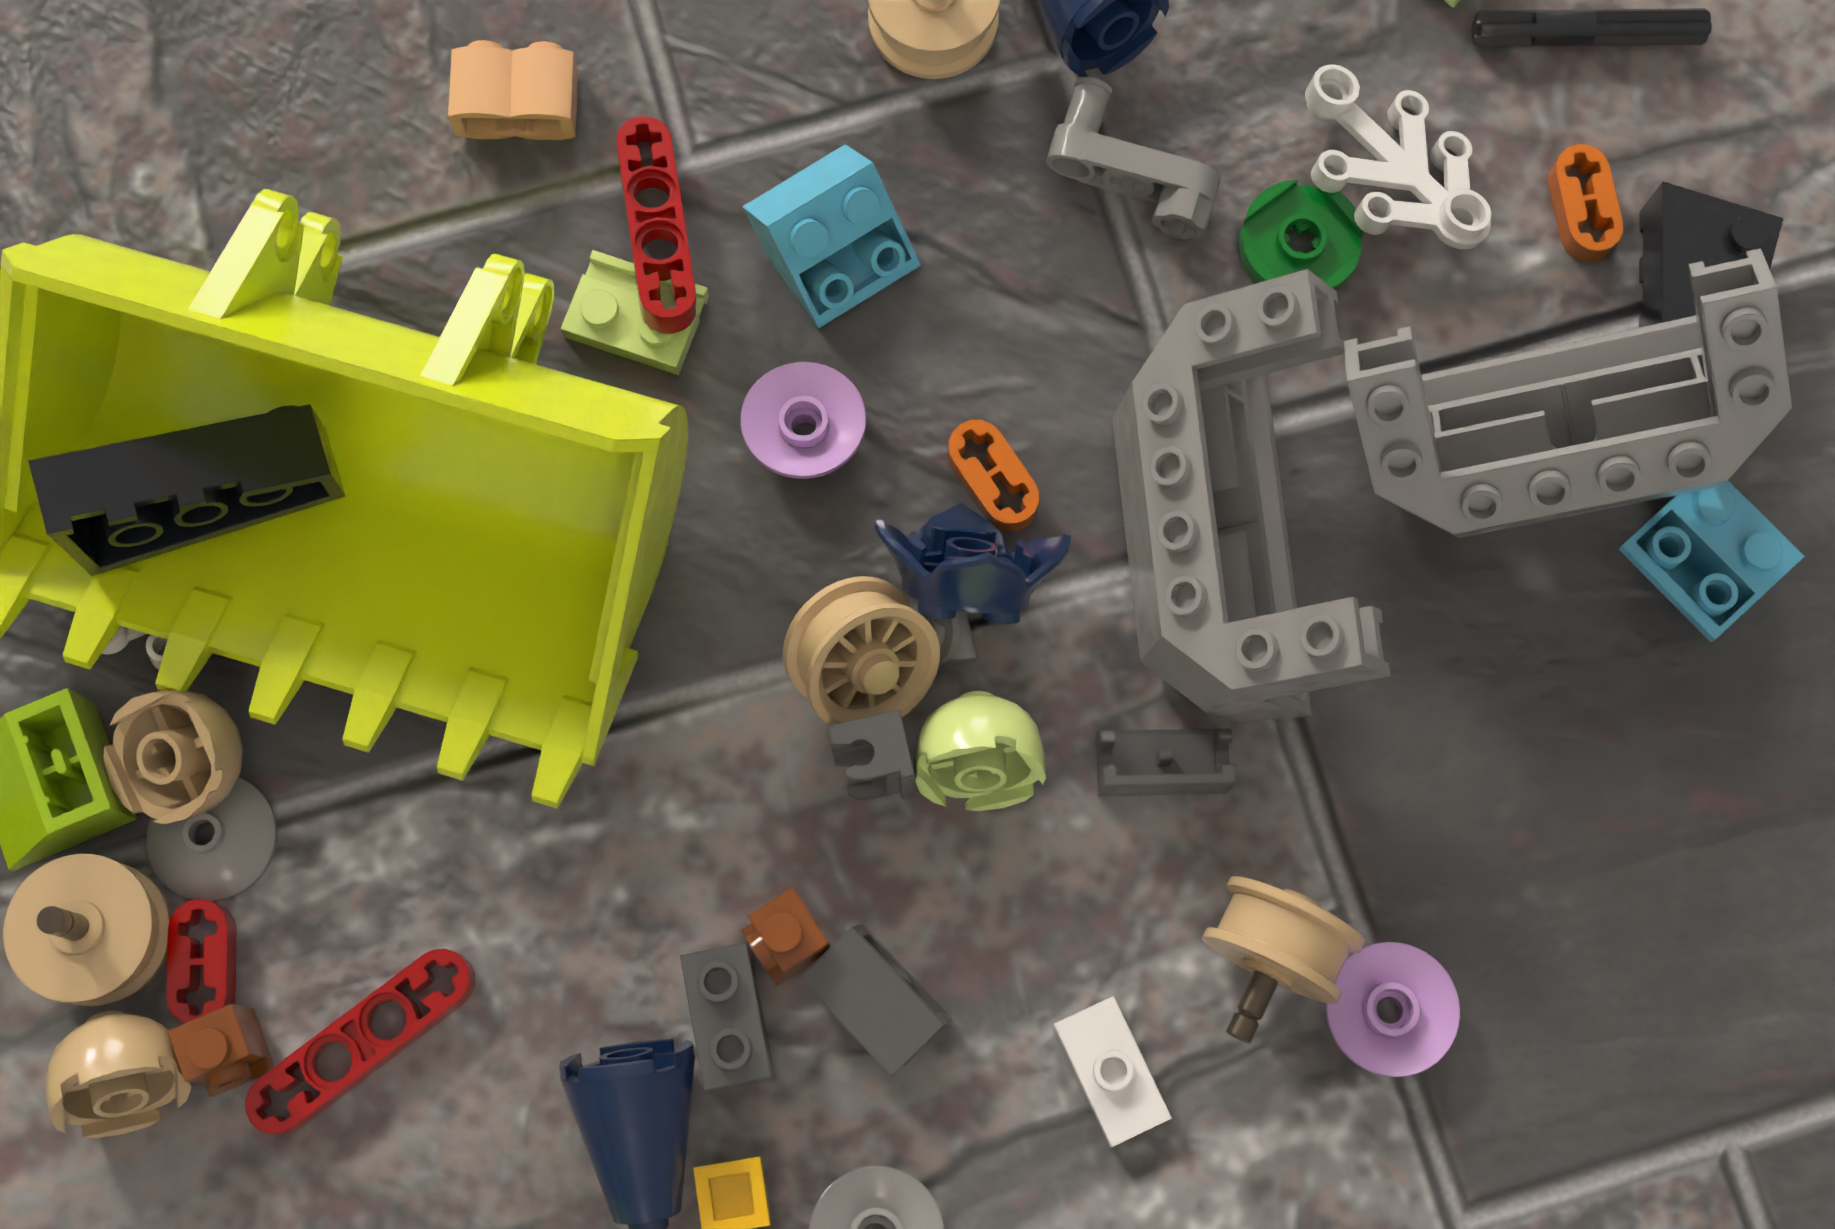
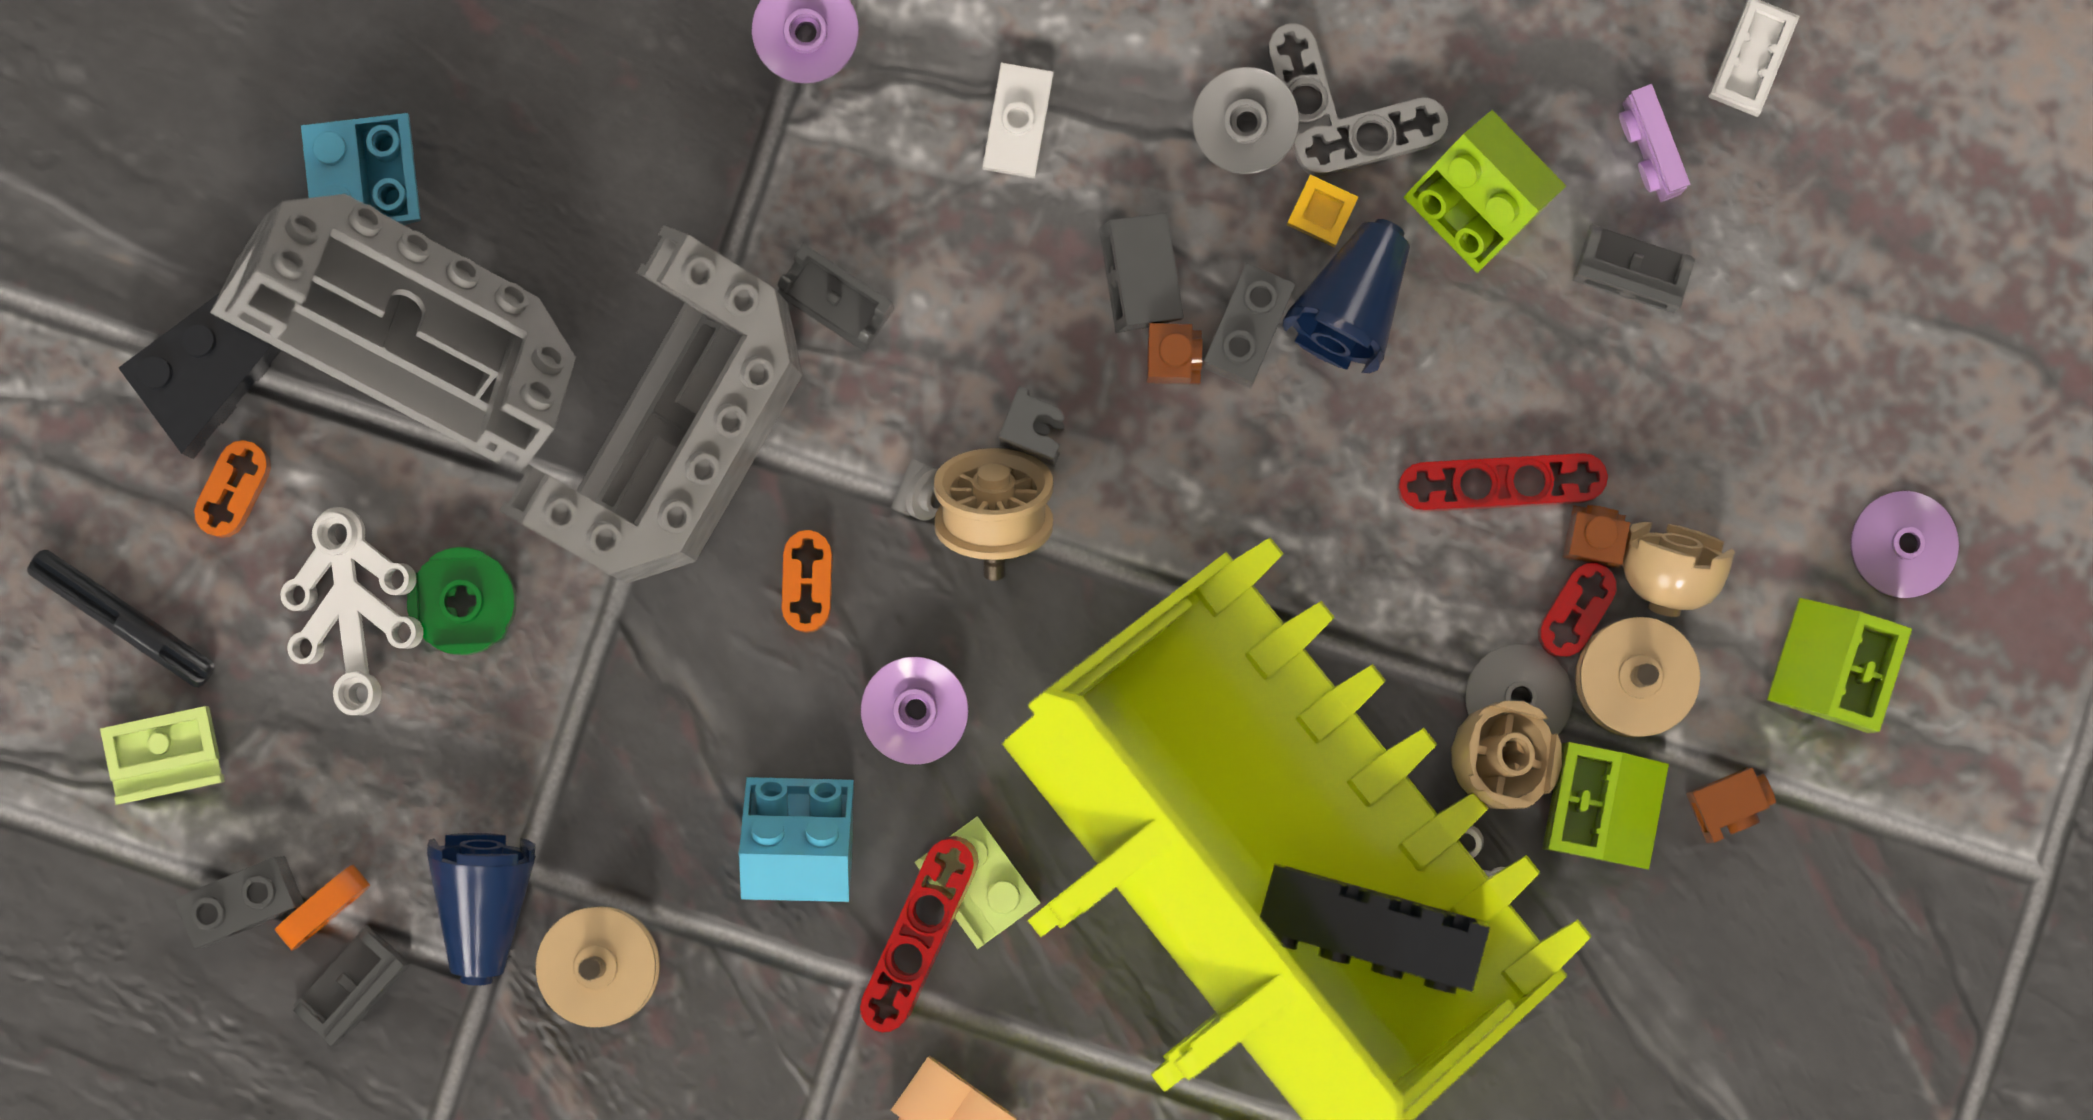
camera: 140 degrees left, 10 degrees up
(965, 565) = (878, 515): dark blue brick -> none
(980, 752) = (955, 388): yellowish green cylinder -> none
(1178, 185) = (519, 695): light grey beam -> none
(1282, 943) = (852, 117): tan wheel -> none

